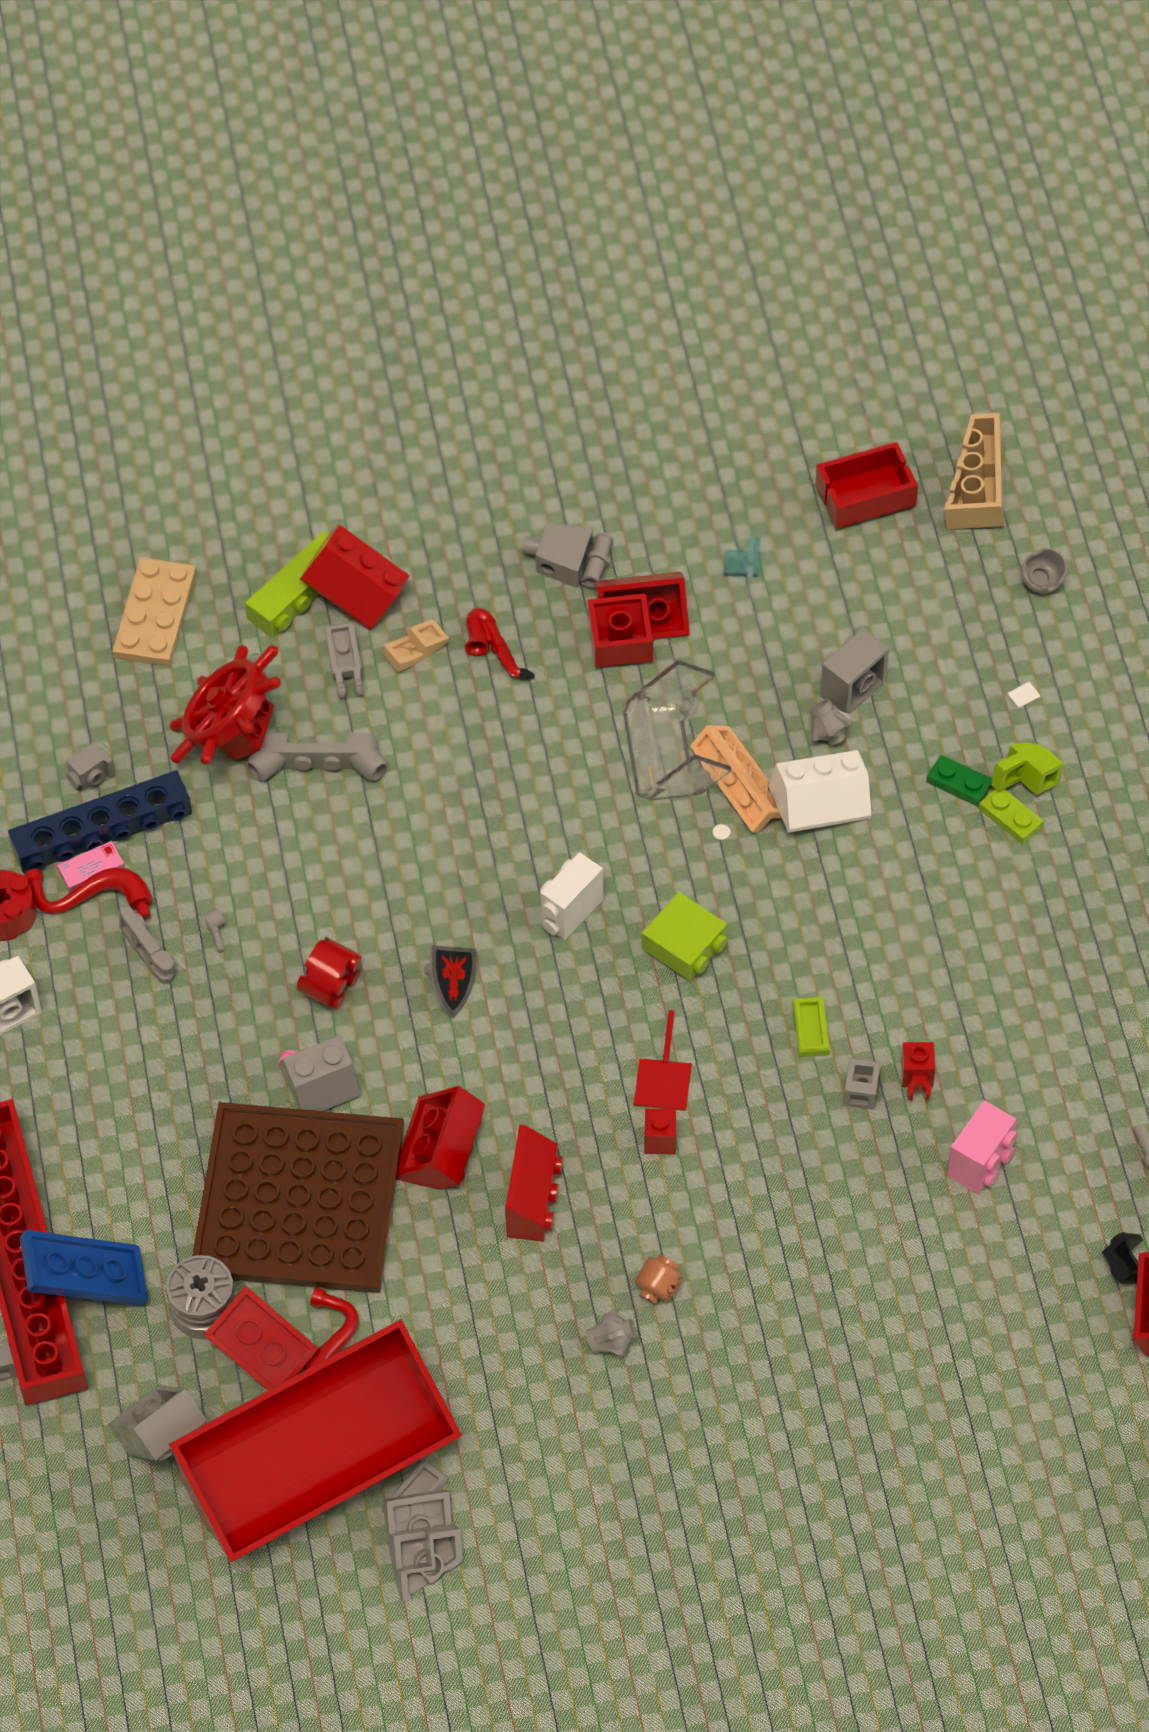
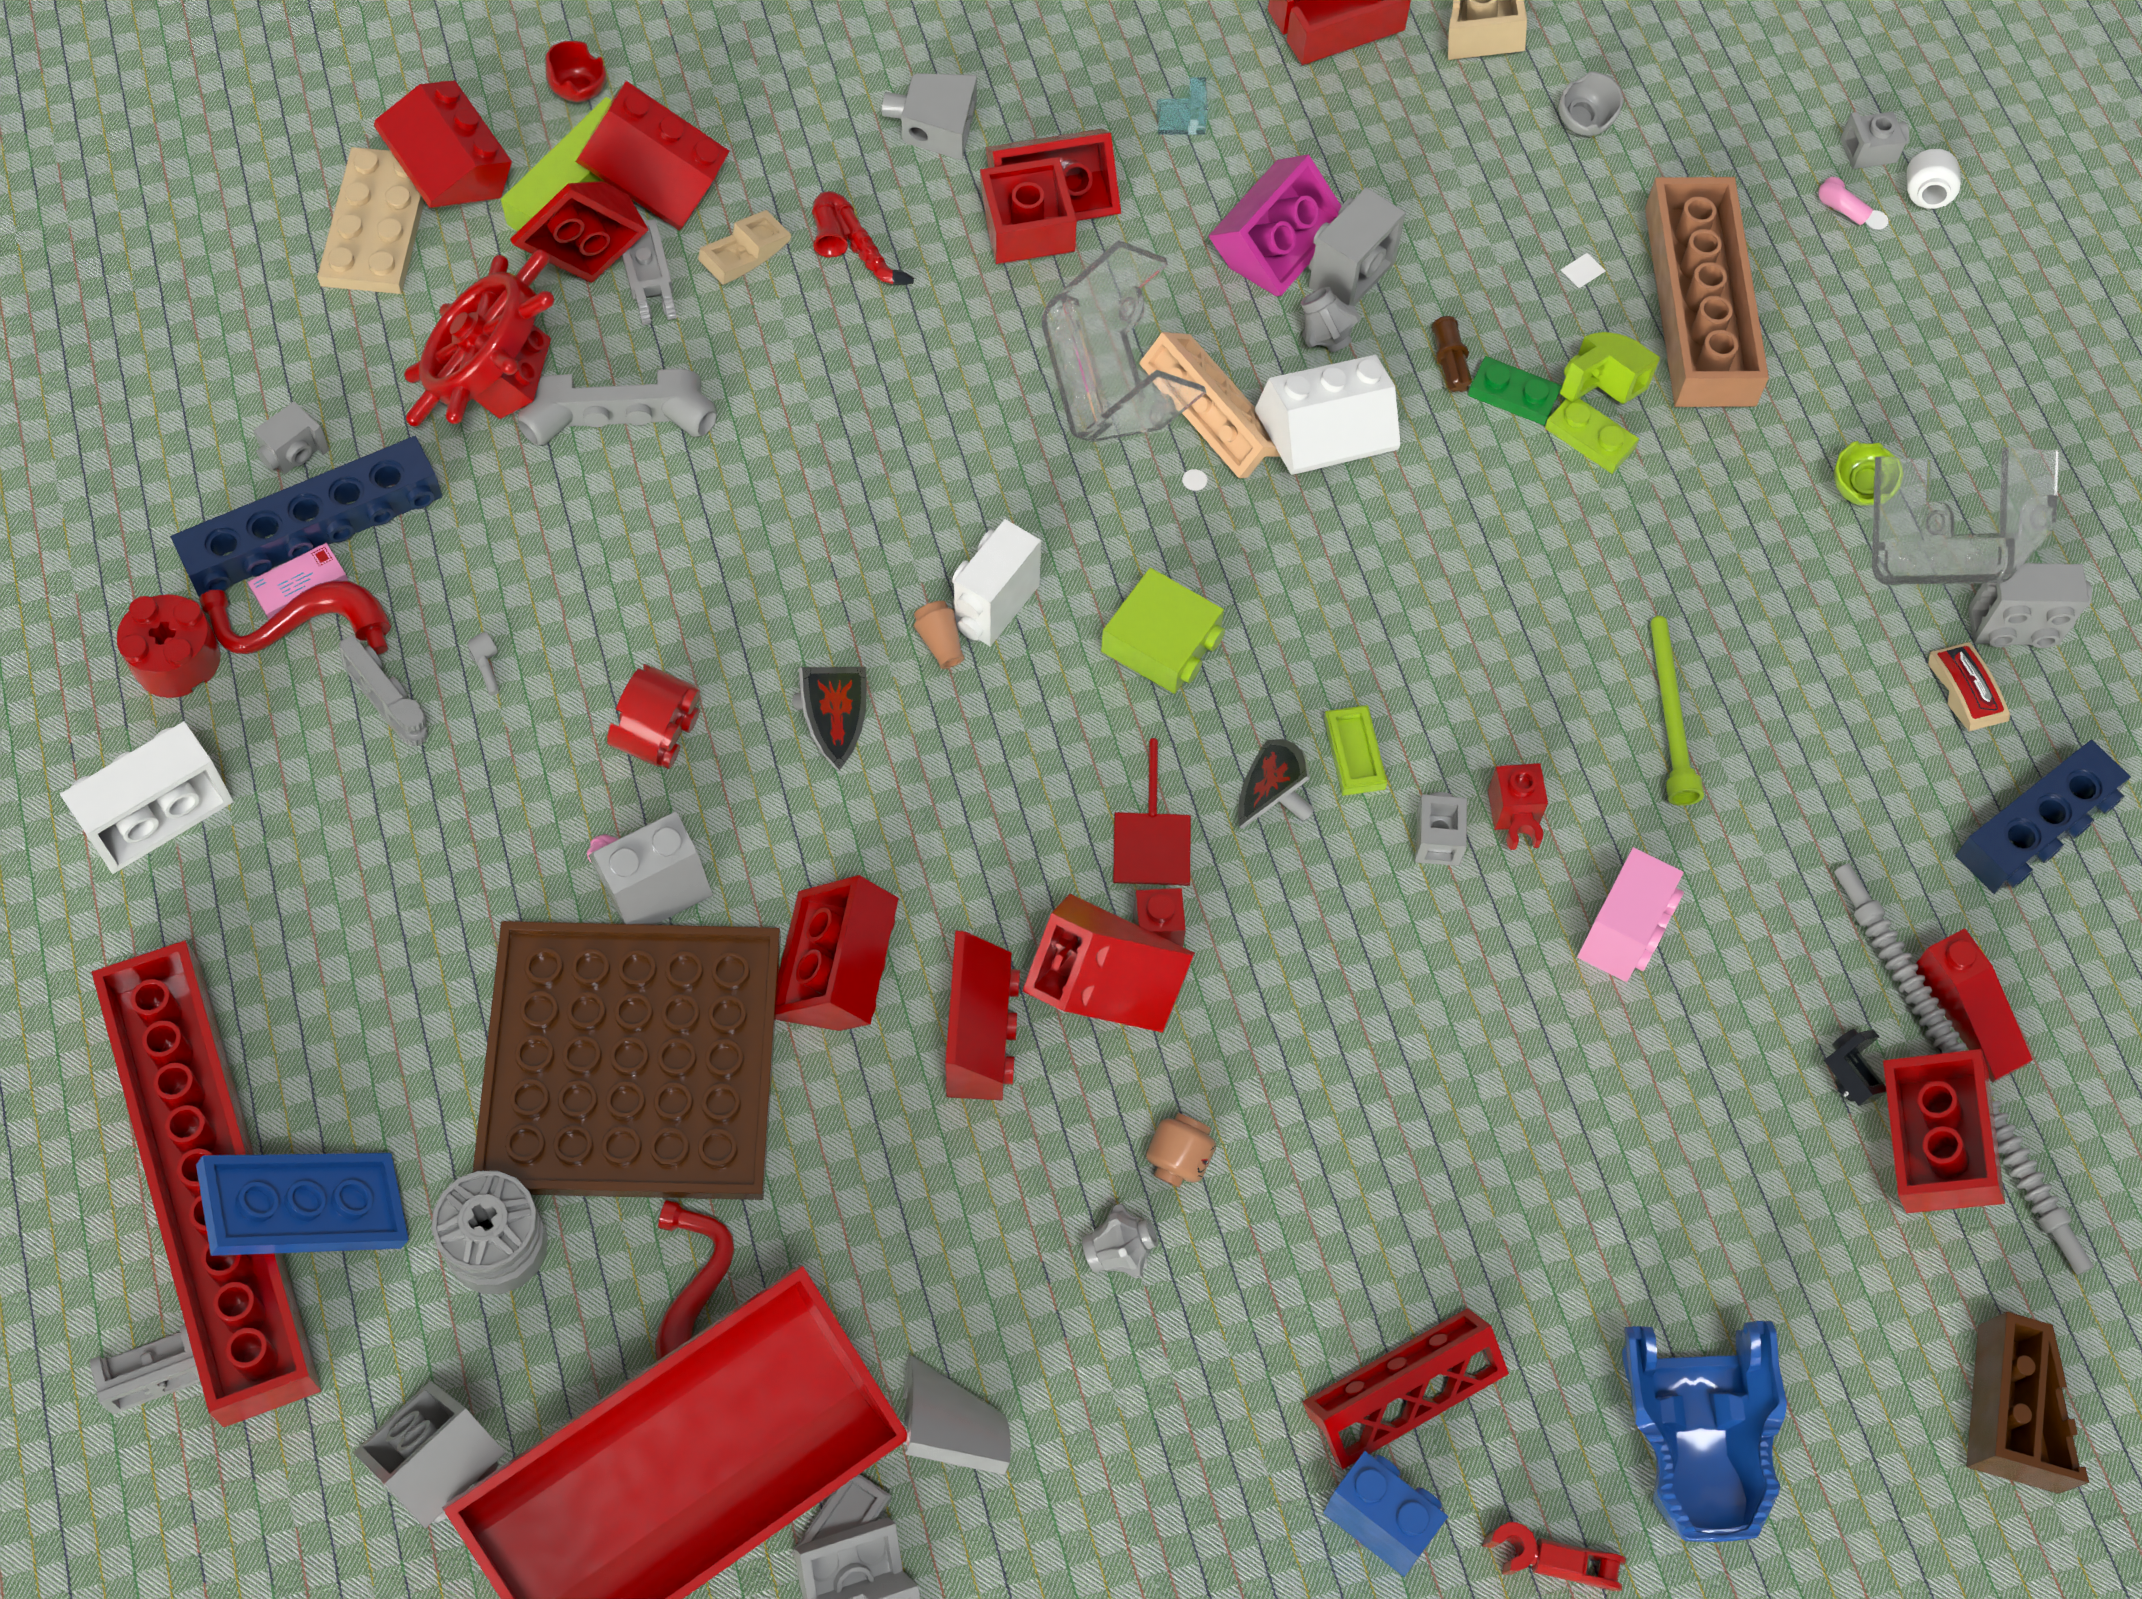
camera: 10 degrees left, 5 degrees up
(206, 561) = (444, 145): none -> red slope
(260, 1340) = (585, 1299): red plate -> none
(302, 509) = (574, 71): none -> red hair
(303, 629) = (583, 228): none -> red slope
(490, 1432) = (952, 1423): none -> light grey slope
(529, 927) = (939, 631): none -> nougat cone
(597, 559) = (985, 120): light grey pin -> none
(620, 1157) = (1107, 967): none -> red slope
(750, 1042) = (1273, 779): none -> shield
(764, 1508) = (1385, 1512): none -> blue brick
(787, 1427) = (1397, 1374): none -> red fence
(795, 651) = (1275, 224): none -> dark pink slope
(873, 1547) = (1555, 1558): none -> red piece
(916, 751) = (1452, 353): none -> reddish brown axle
(982, 1477) = (1710, 1431): none -> blue animal
(1037, 1064) = (1683, 785): none -> lime piece
(1106, 716) = (1705, 292): none -> nougat brick

